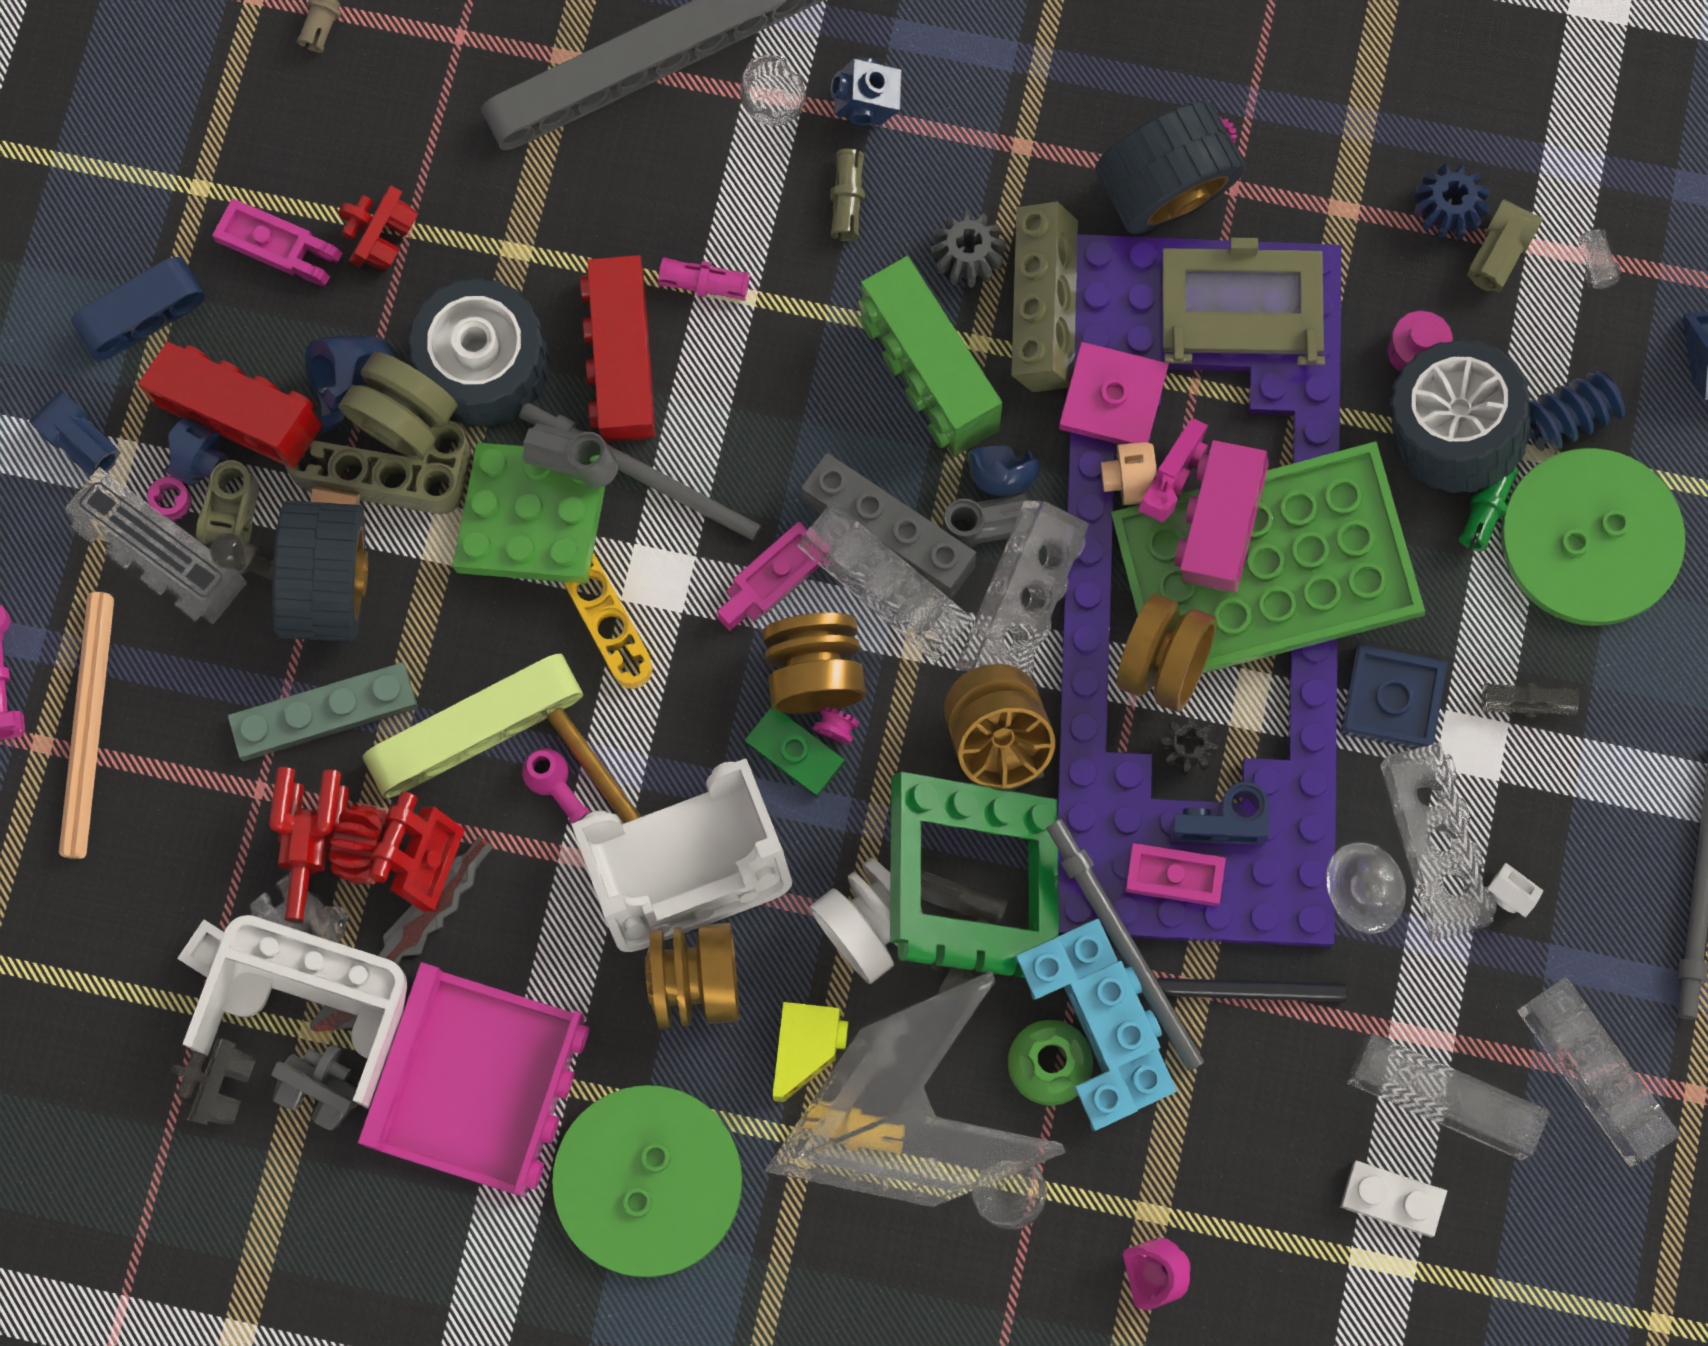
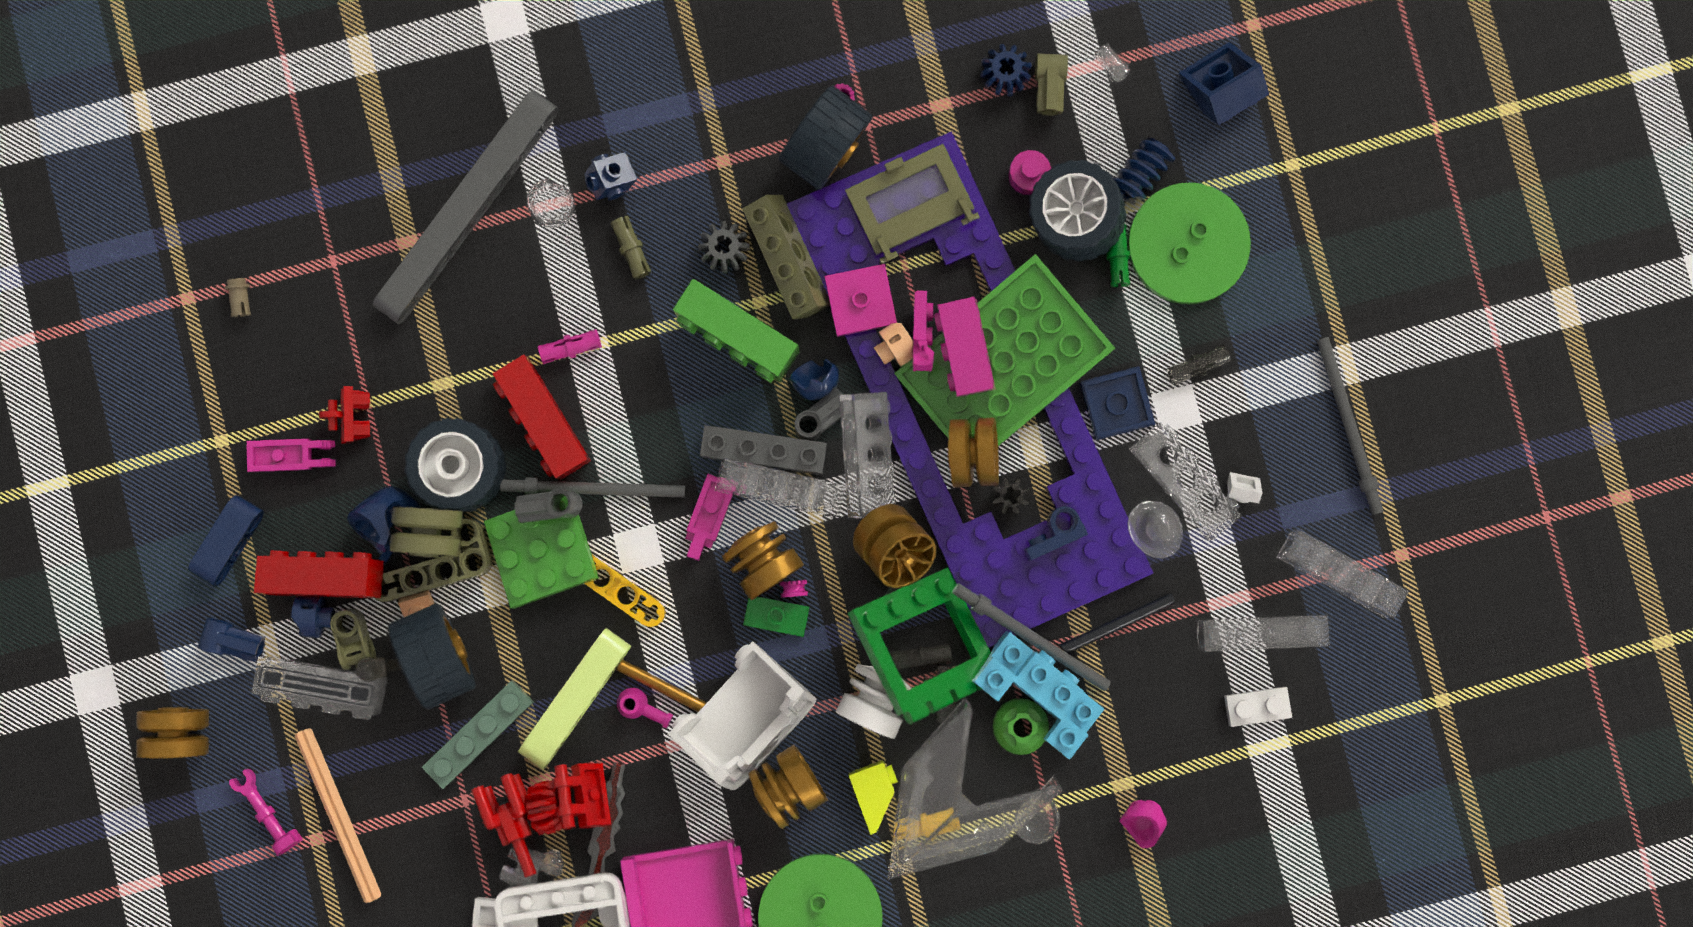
camera: 30 degrees left, 10 degrees up
(182, 501) = (321, 649): dark pink bush -> none
(1175, 874) = (1042, 582): dark pink plate -> none

